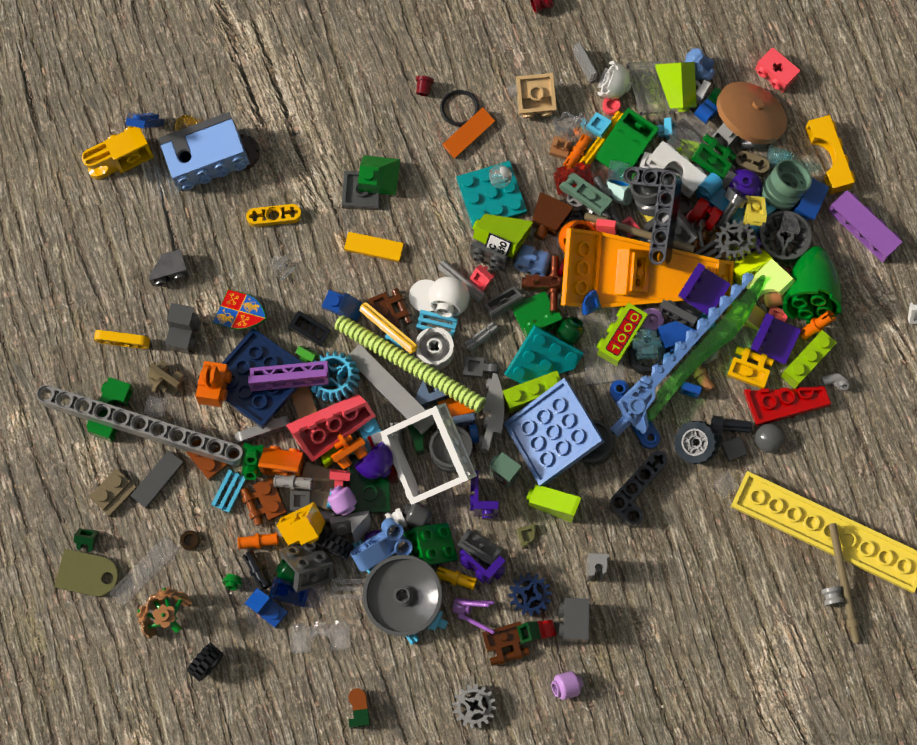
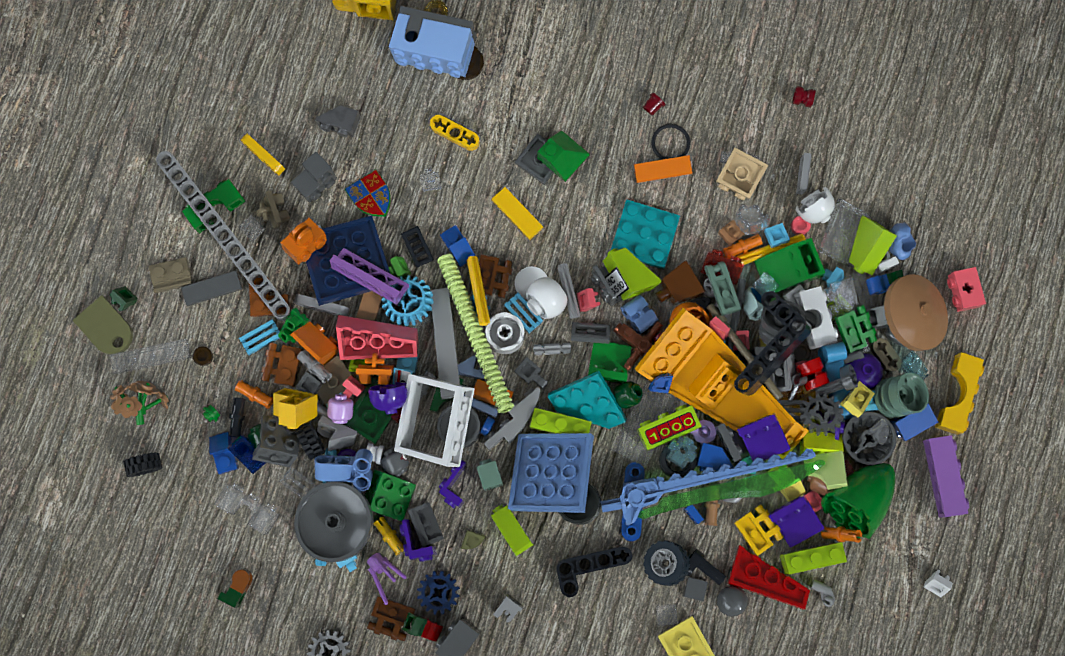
camera: 35 degrees right, 5 degrees up
(500, 176) = (660, 224): clear piece -> none

